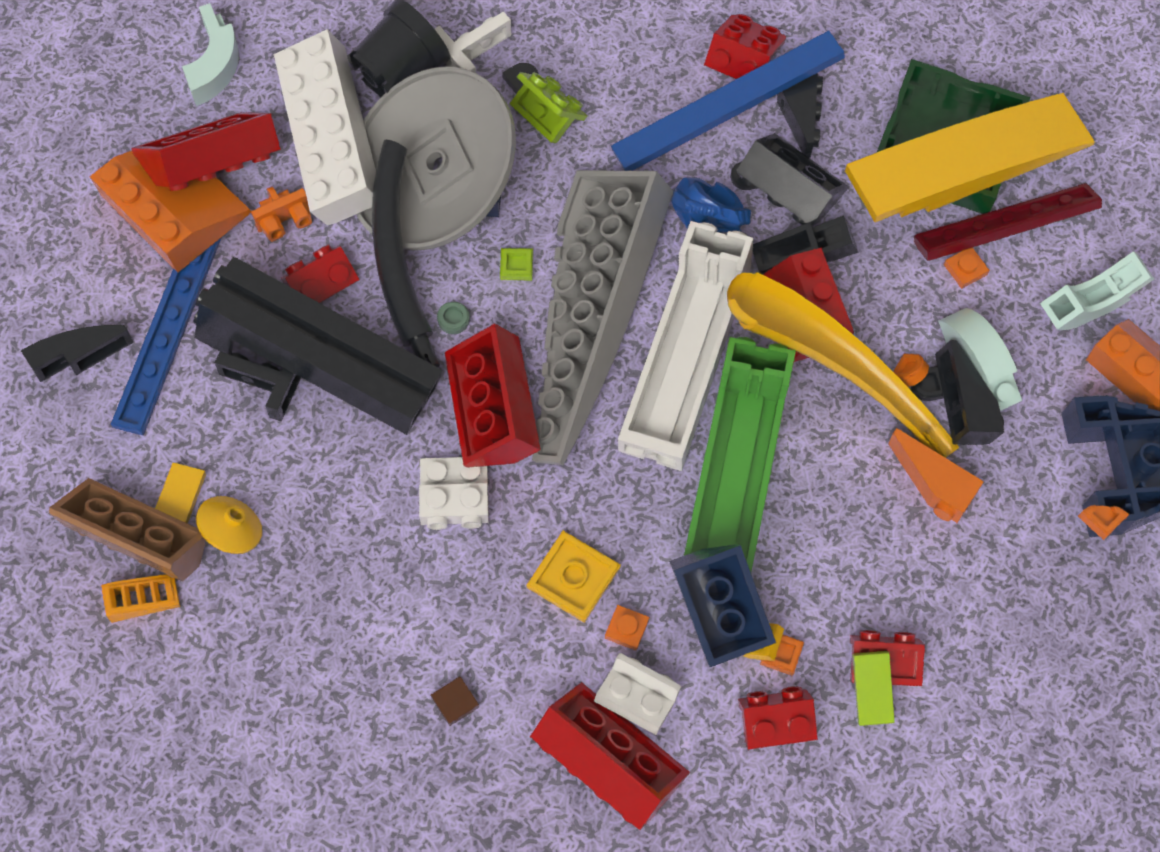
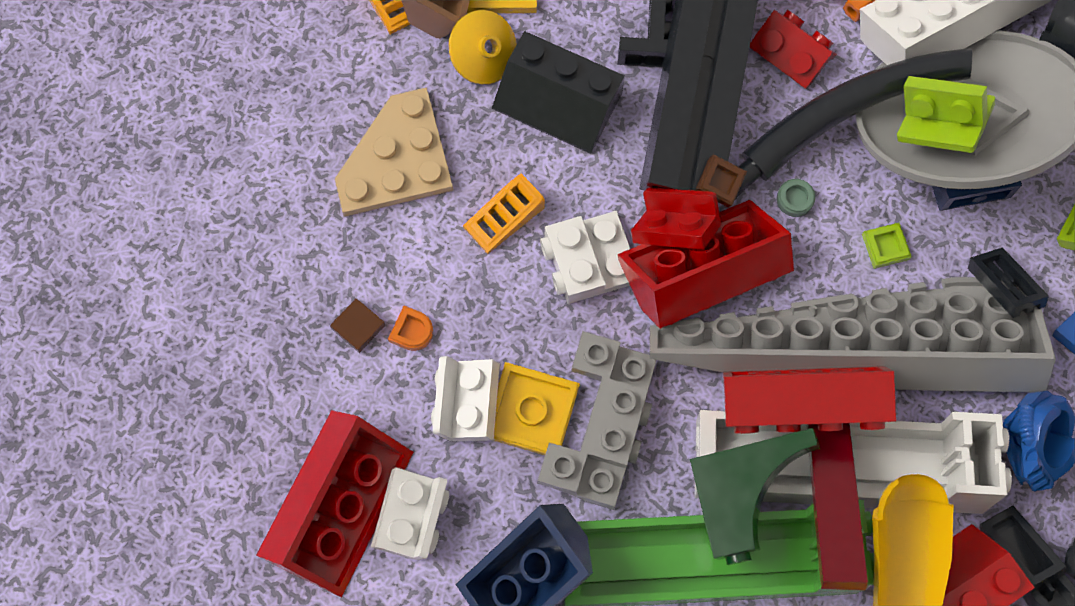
camera: 75 degrees right, 5 degrees up
(295, 474) = (558, 92): none -> black slope
(306, 629) = (395, 158): none -> tan plate
(379, 524) = (513, 223): none -> light orange slope
(429, 363) = (721, 179): none -> reddish brown tile
(439, 177) = (944, 114): none -> lime bracket
(449, 409) = (677, 218): none -> red bracket
(473, 656) = (412, 330): none -> orange tile
(551, 623) = (465, 399): none -> white bracket
(578, 191) = (1002, 285): none -> black tile
(605, 512) = (610, 439): none -> light grey bracket
(627, 627) = (487, 484): orange plate -> none
(636, 352) = (809, 397): none -> red slope
(694, 427) = (734, 486): none -> dark green arch
(707, 352) = (837, 511): none -> dark red tile

